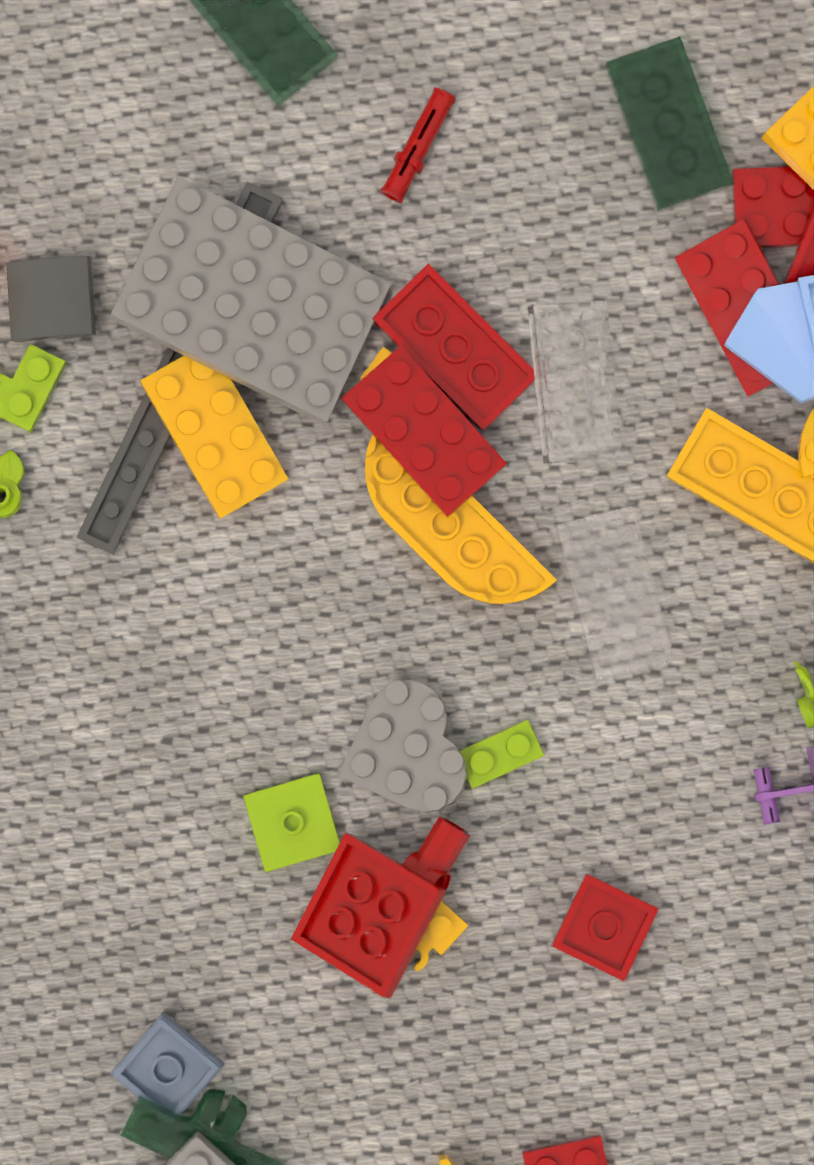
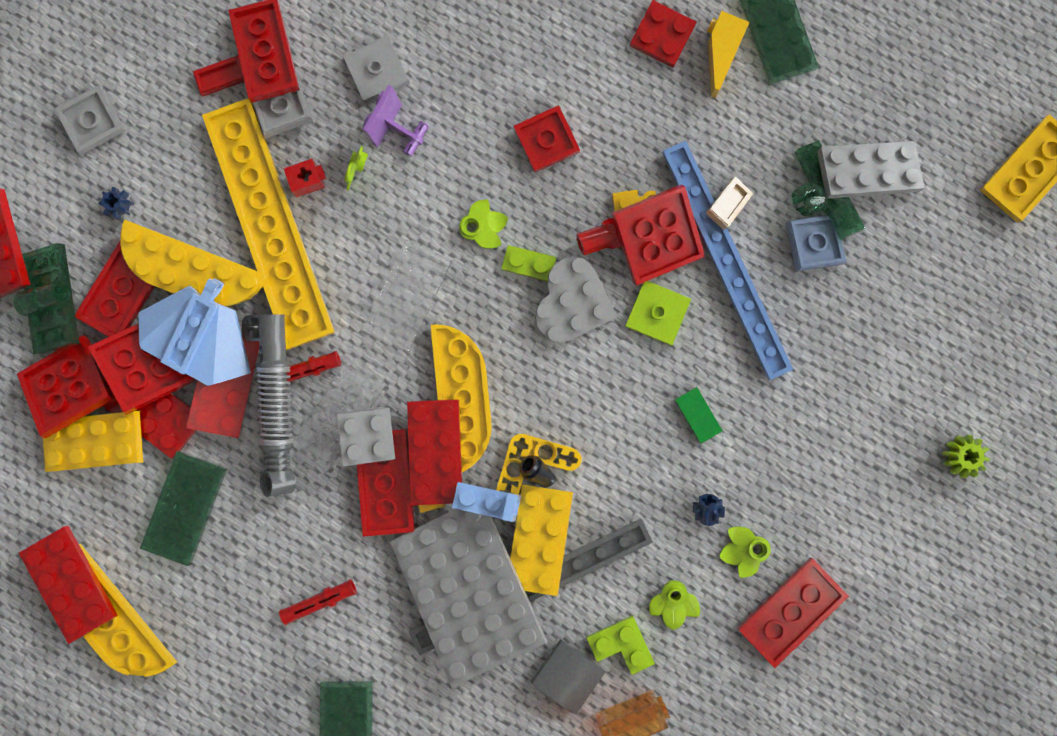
camera: 140 degrees left, 0 degrees up
(40, 630) = (708, 509): none -> dark blue gear
(142, 736) = (698, 415): none -> green tile
(260, 956) = (728, 264): none -> medium blue plate
(284, 508) = (535, 470): none -> black cone
(307, 524) = (533, 446): none -> yellow beam
(312, 422) = (486, 502): none -> light blue bracket
(313, 1029) = (729, 203): none -> tile
(521, 382) = (365, 436): none -> light grey plate
(590, 761) = (487, 224): none -> lime plate
(657, 414) = (314, 366): none -> red pin
(700, 374) = (274, 401): none -> dark grey piece

